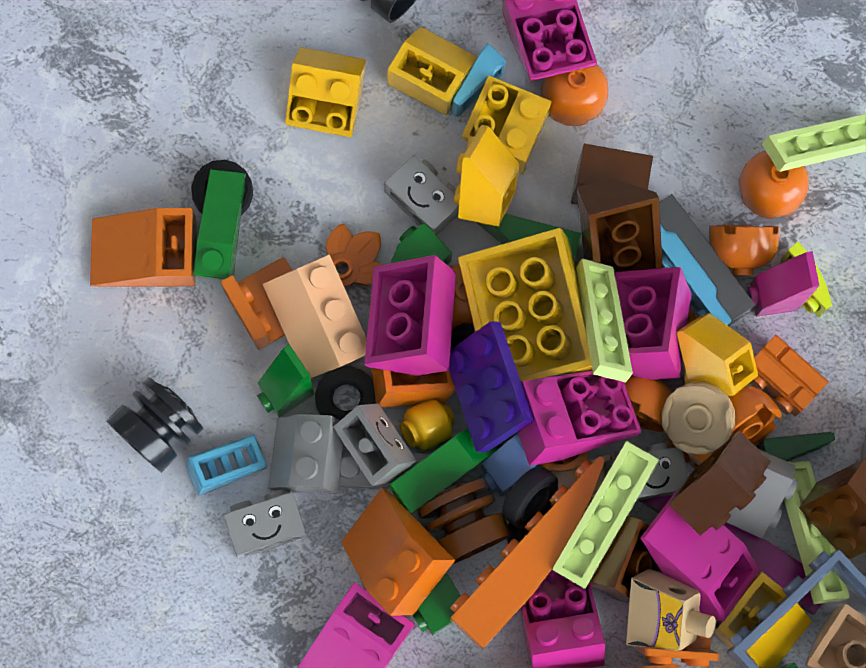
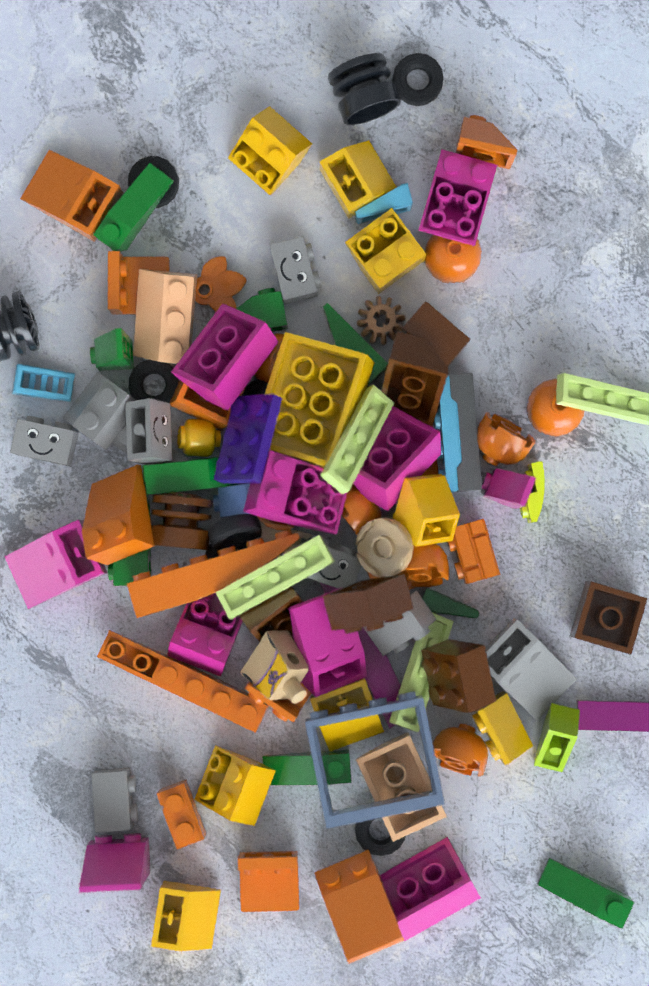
camera: 40 degrees right, 10 degrees up
(487, 179) = (341, 285): yellow slope -> none
(553, 189) = (370, 323): none -> medium nougat gear

